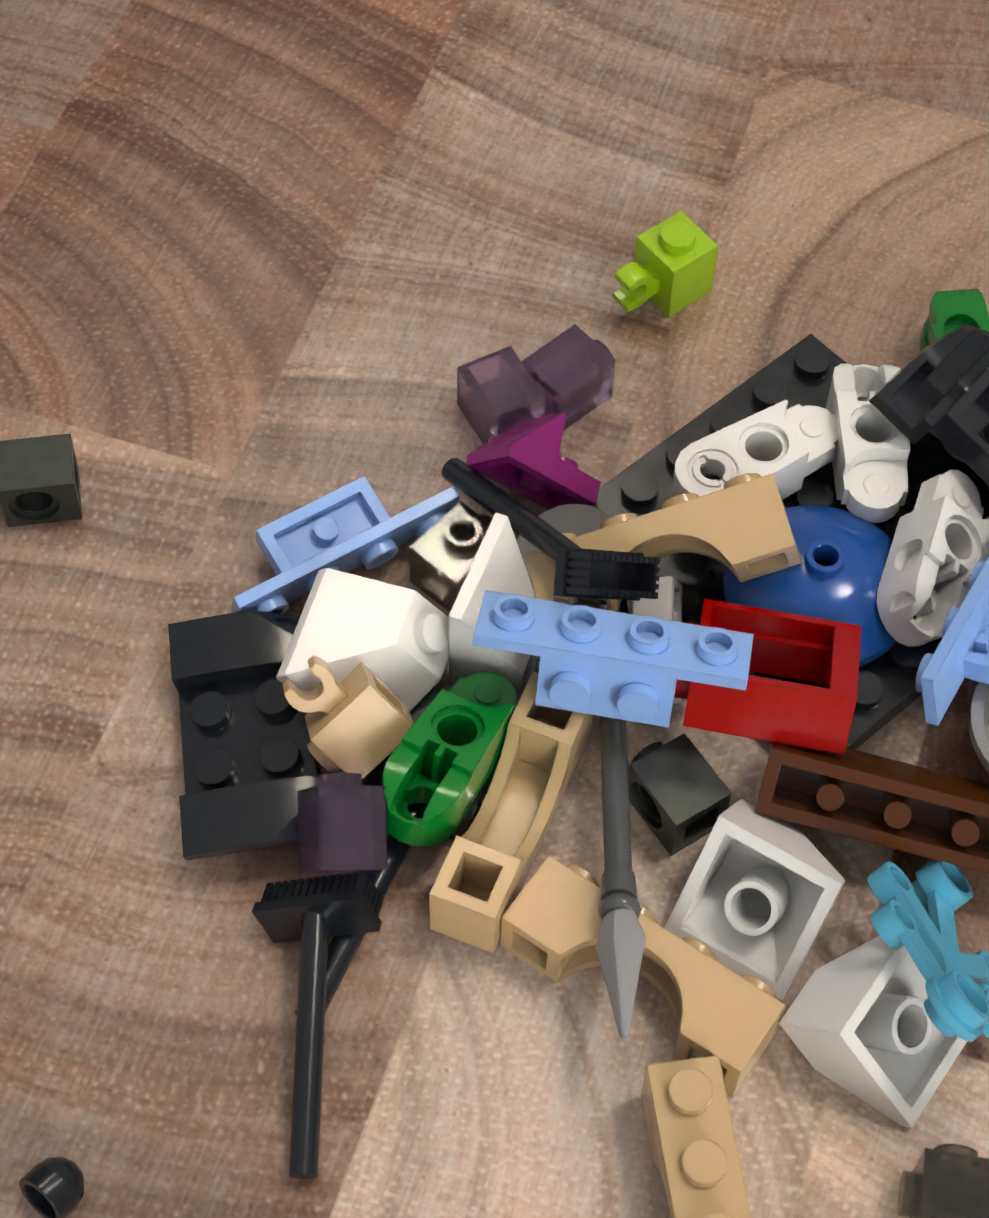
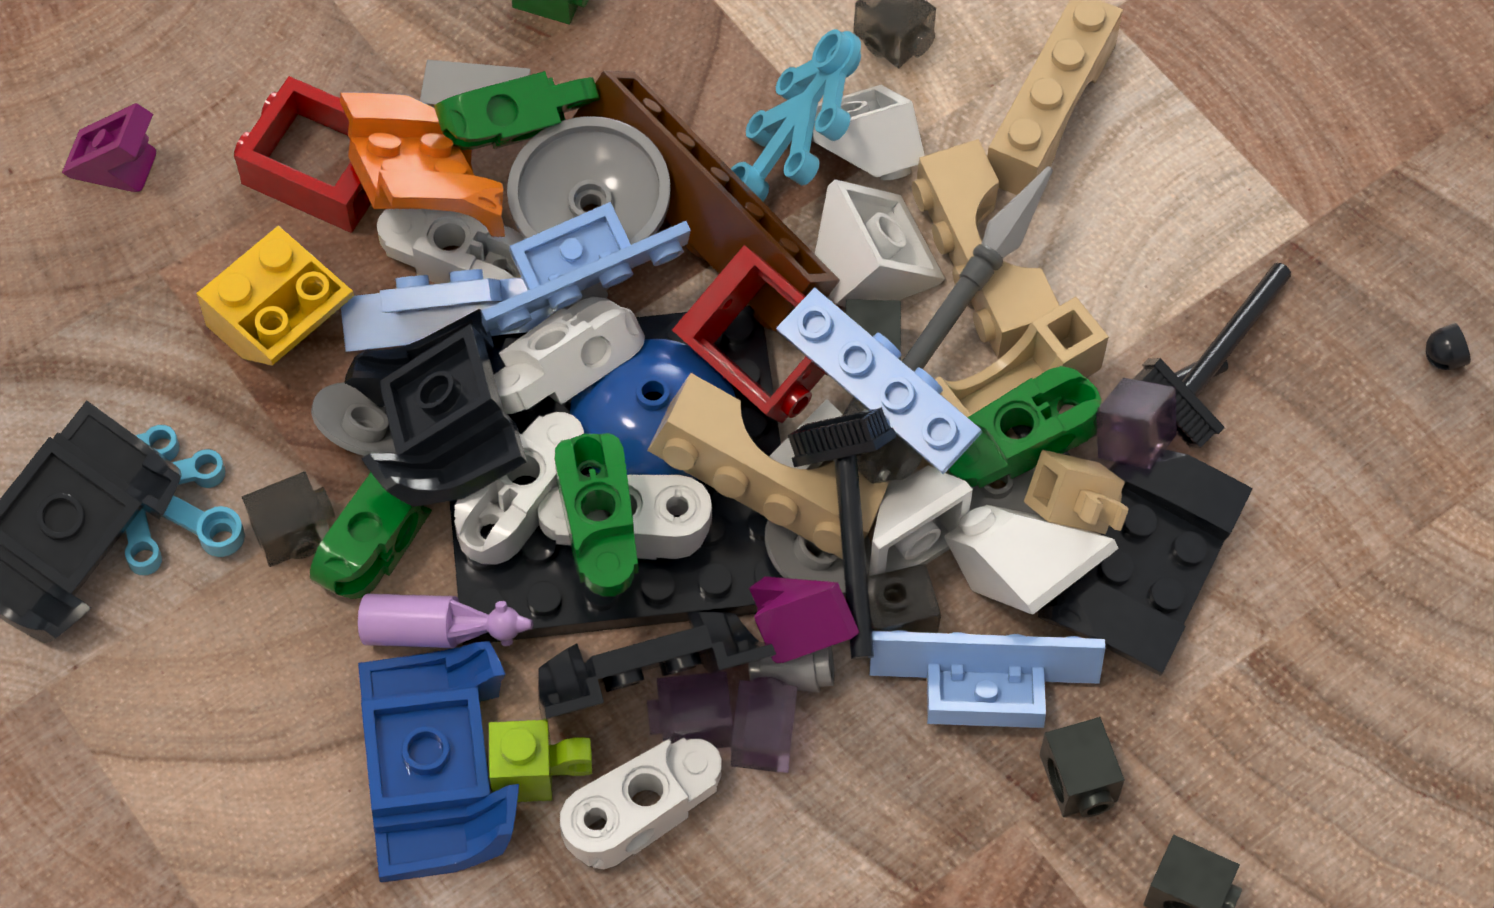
camera: 145 degrees left, 5 degrees up
(197, 519) = (1082, 768): none -> pearl dark grey brick
(557, 282) = (678, 772): none -> white piece
(625, 359) = (714, 641): none -> black piece
(769, 245) = (431, 762): none -> blue piece
(775, 401) = (604, 548): none -> green piece
(842, 316) = (433, 621): none -> lavender wheel

